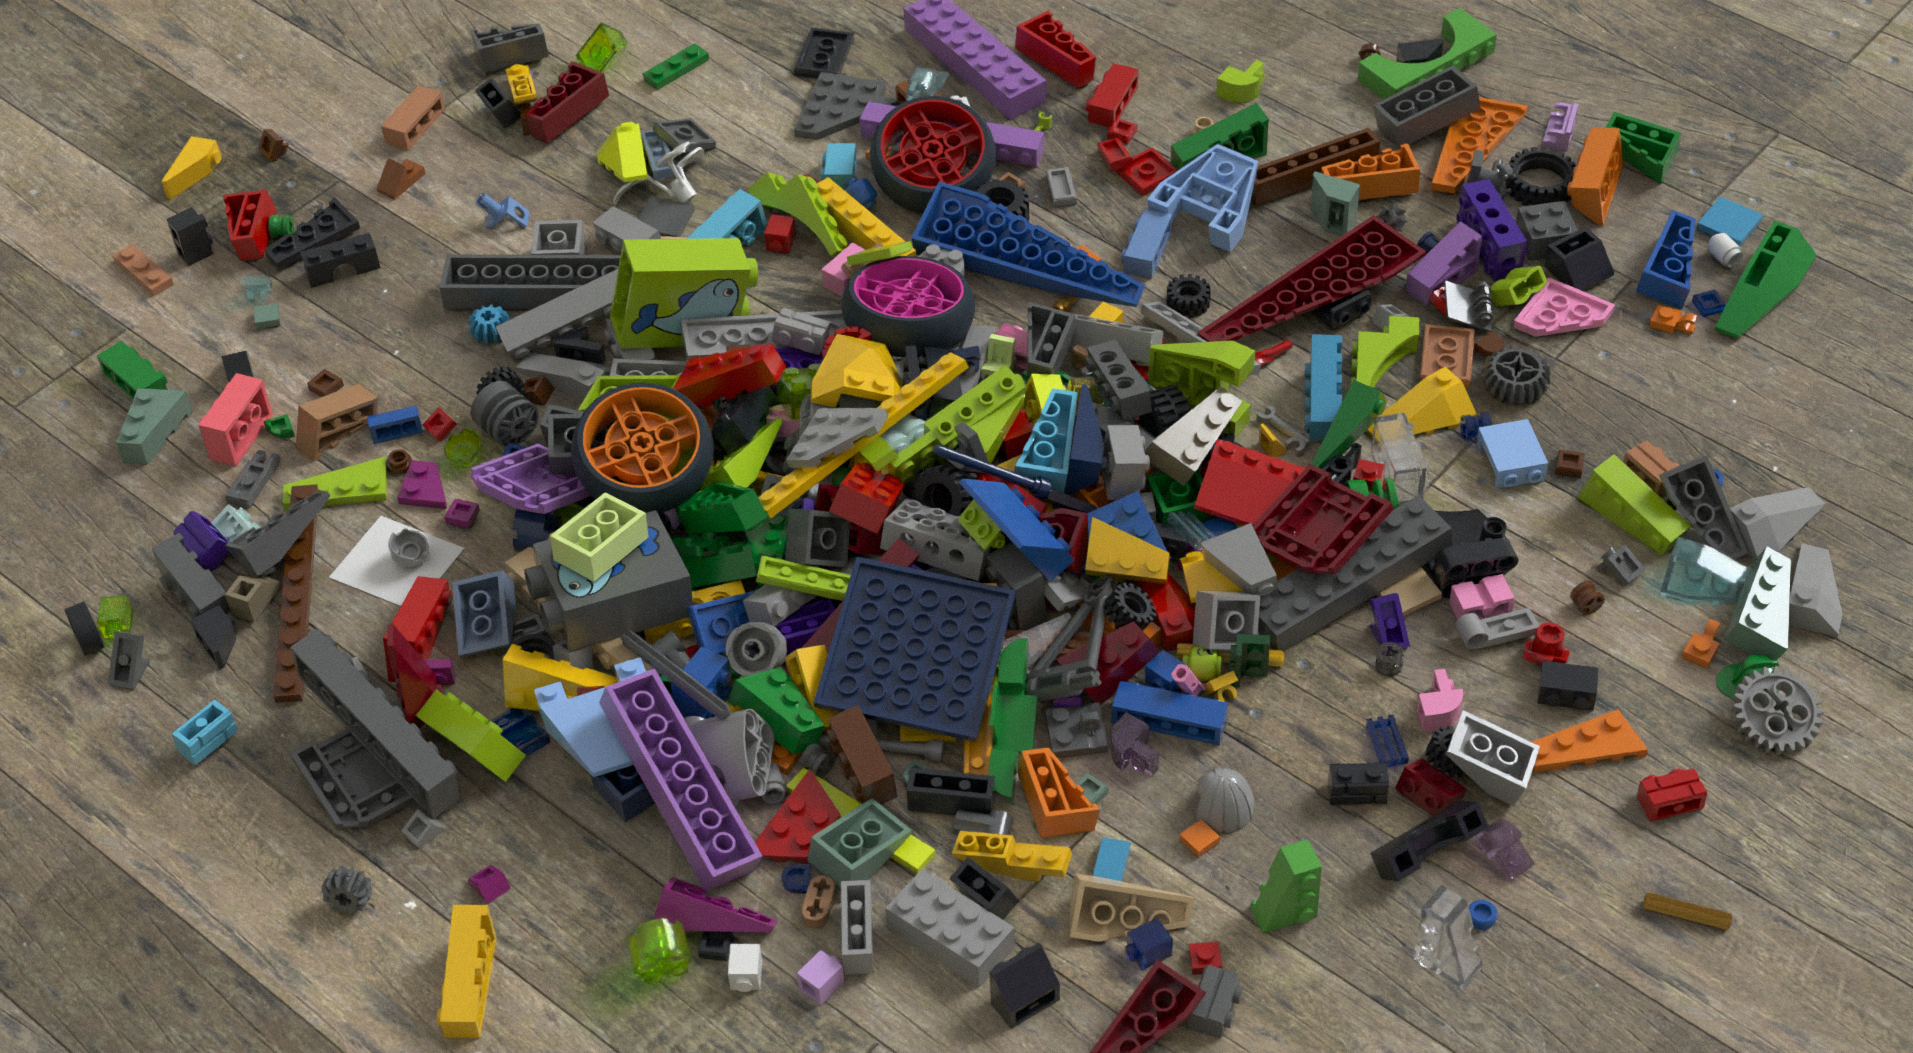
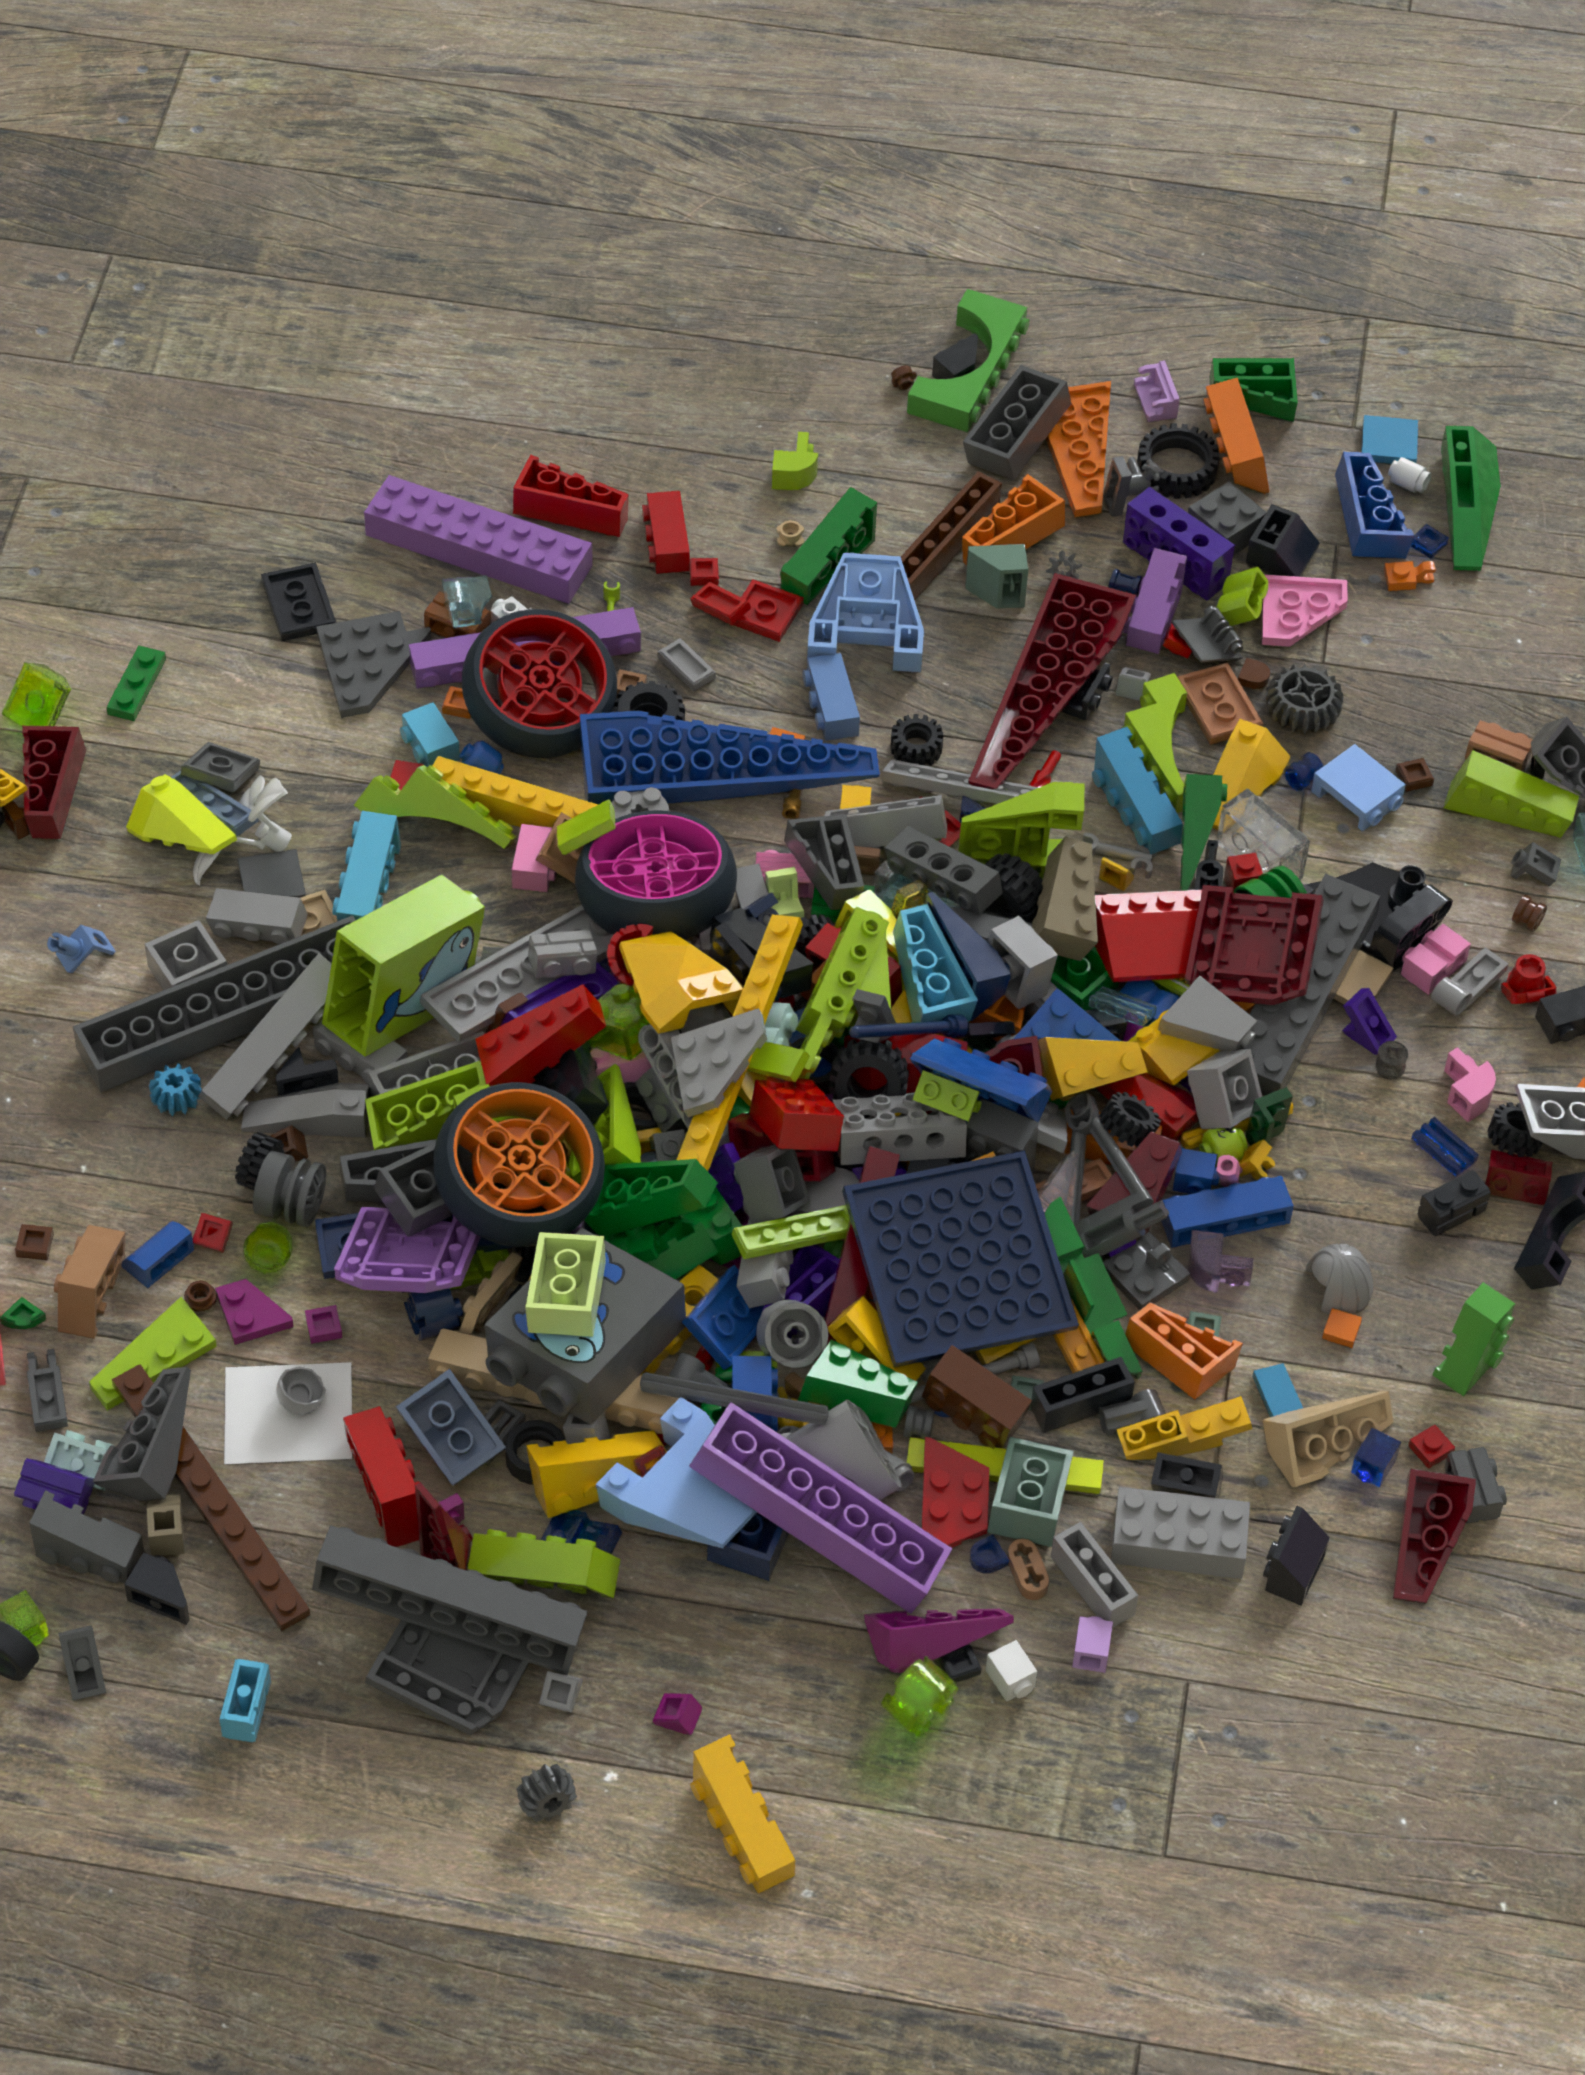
camera: 35 degrees left, 5 degrees up
(780, 233) = (424, 844): red brick -> none

